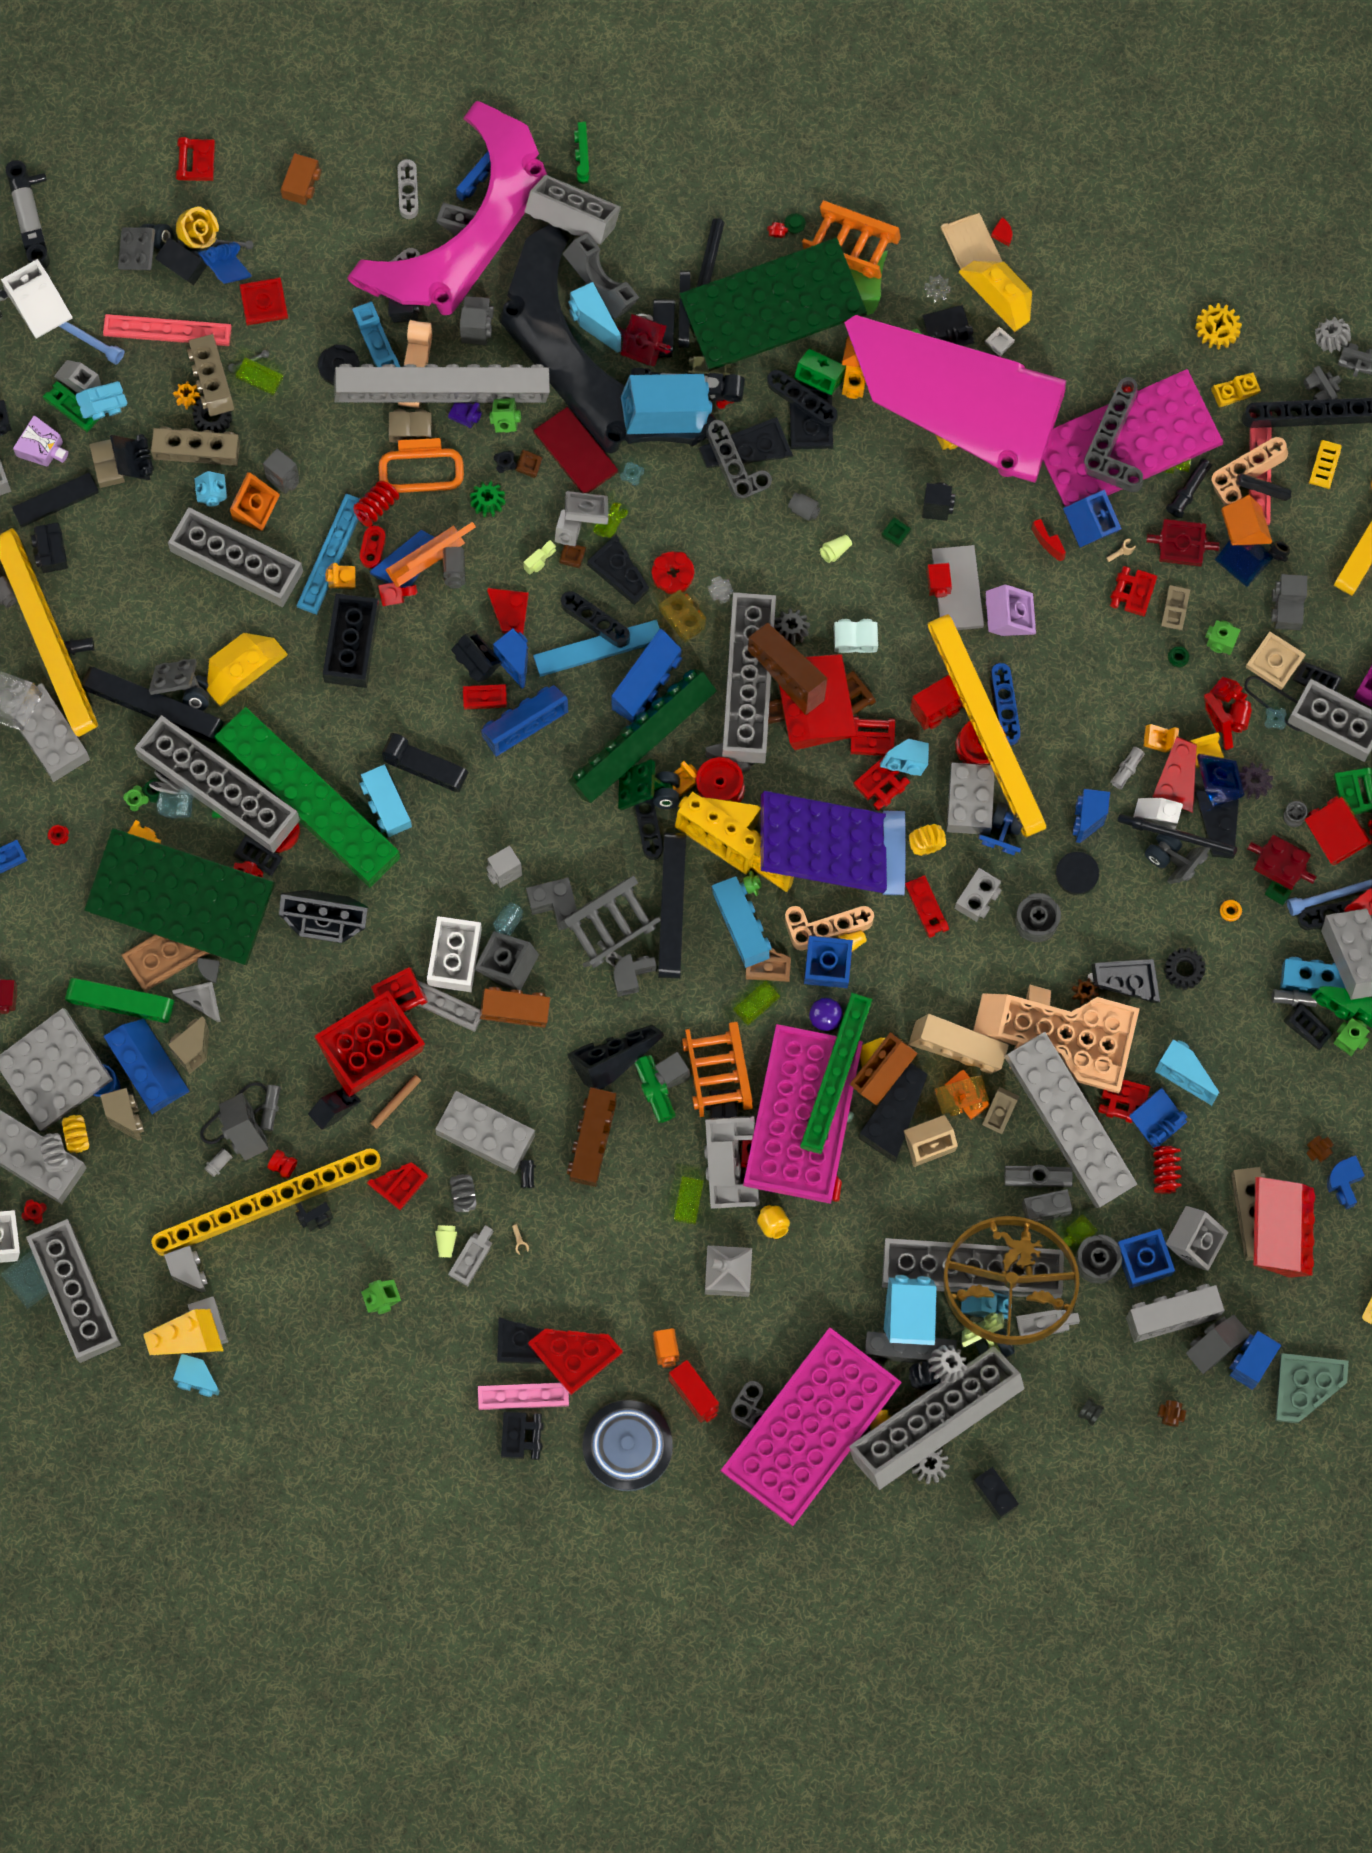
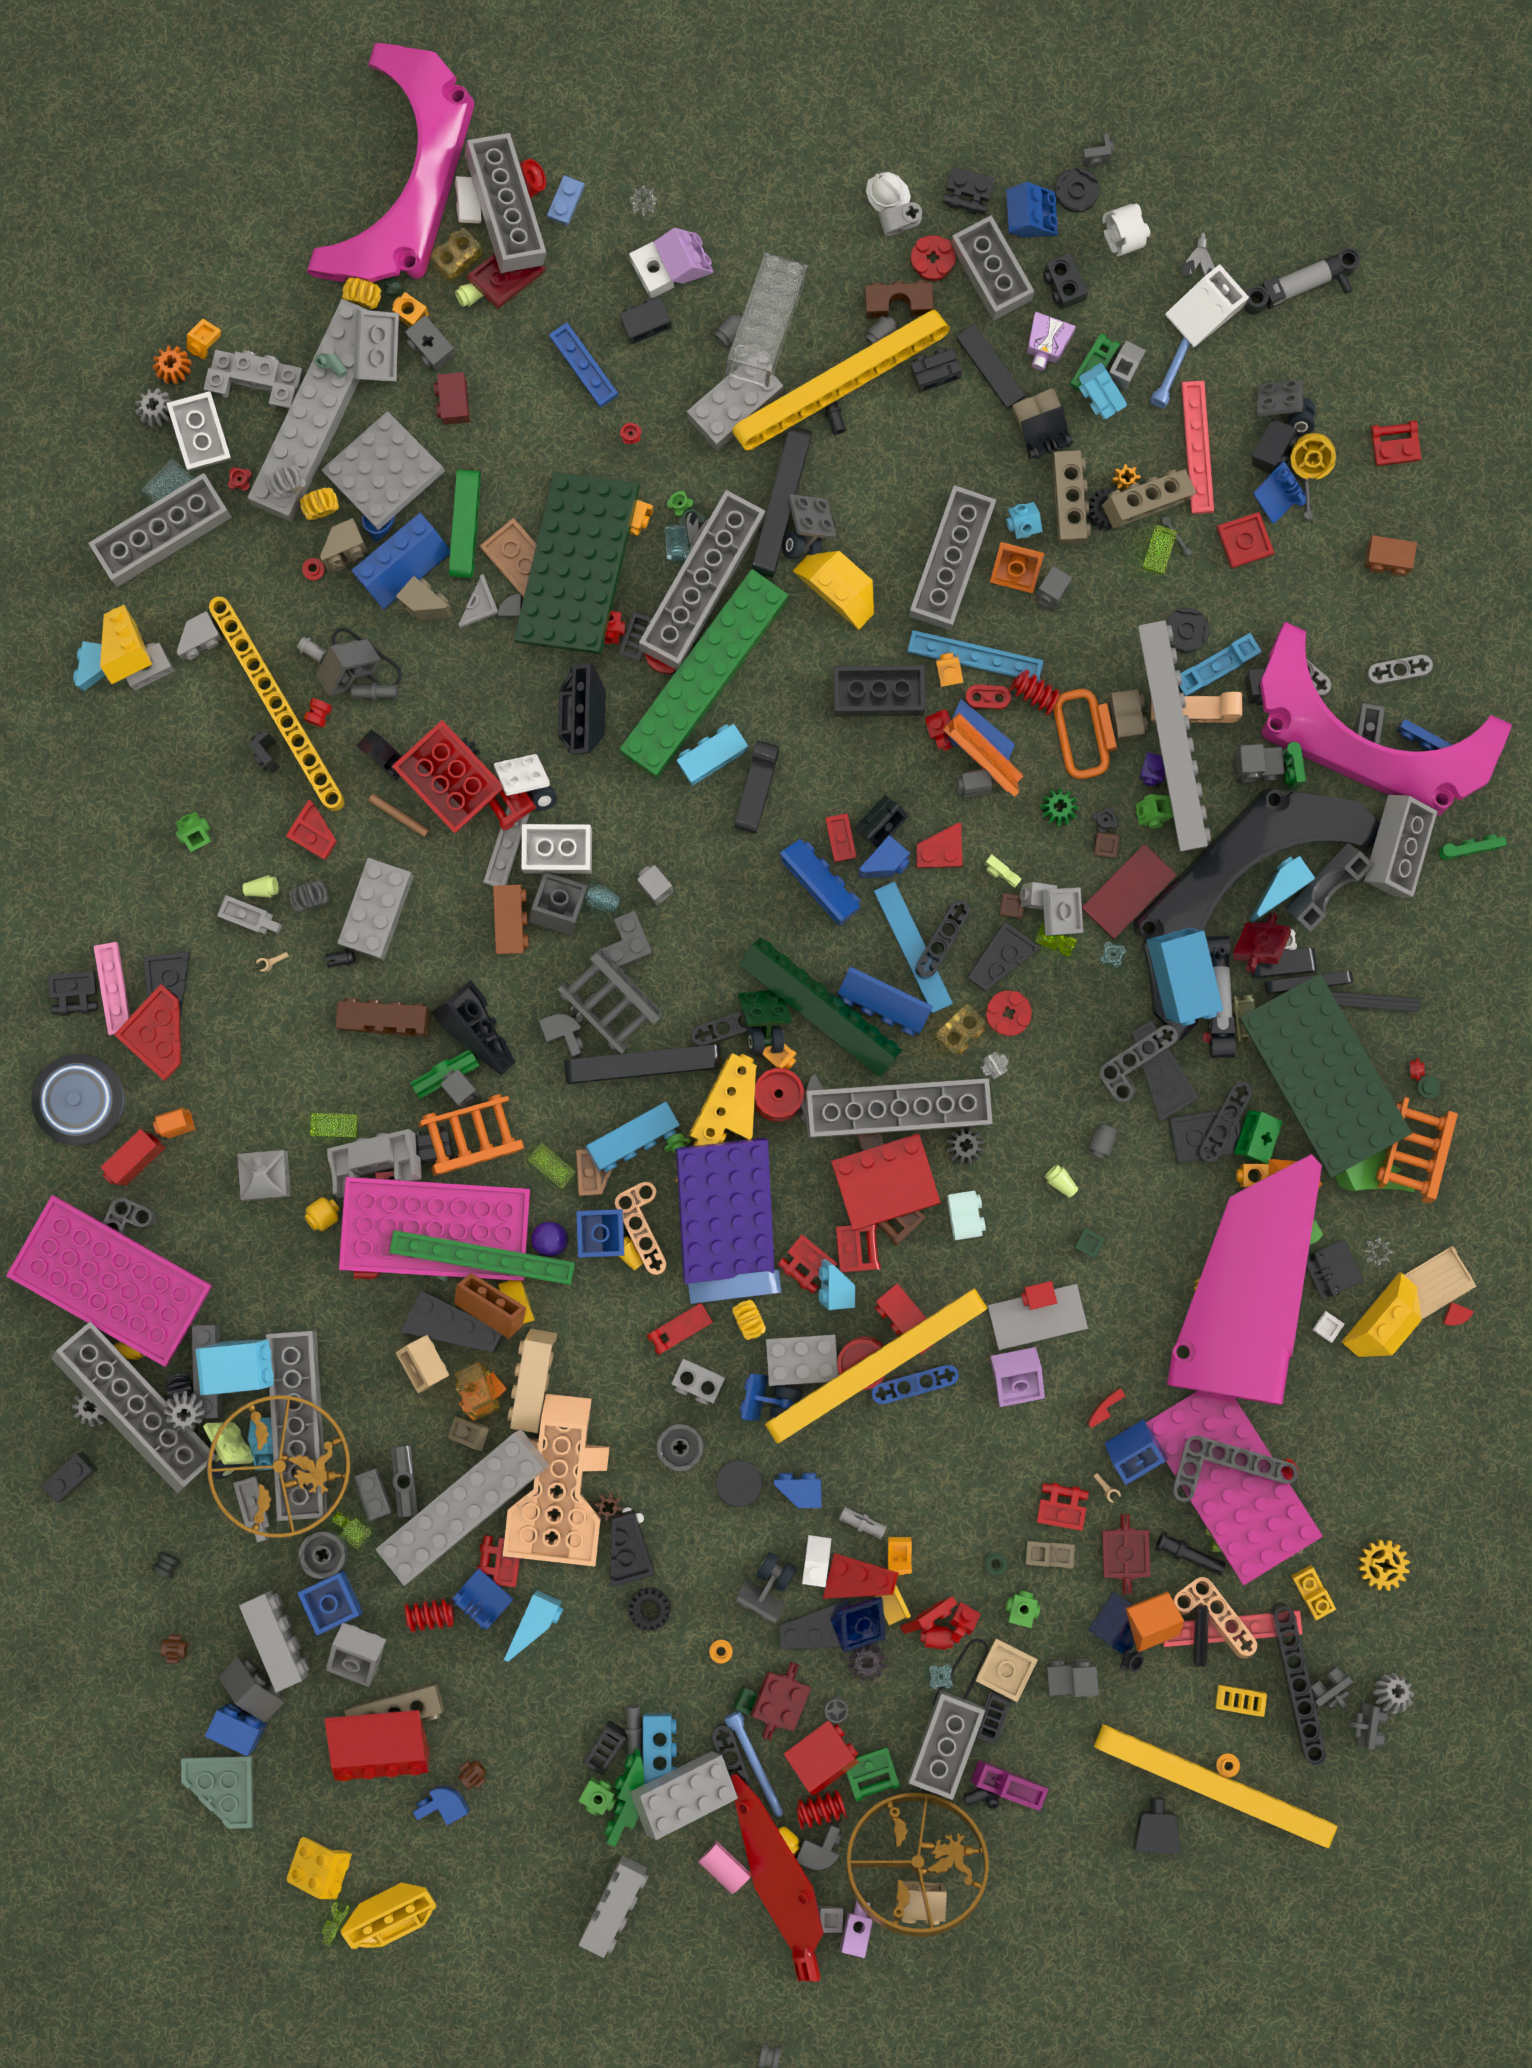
camera: 85 degrees right, 10 degrees up
(138, 1157) = (313, 576): none -> red plate
(380, 972) = (526, 775): none -> white plate
(490, 287) = (1293, 760): none -> green plate
(789, 668) = (907, 1146): reddish brown wedge -> none
(938, 501) = (1128, 1283): black brick -> none
(1141, 824) = (800, 1544): black bar -> none

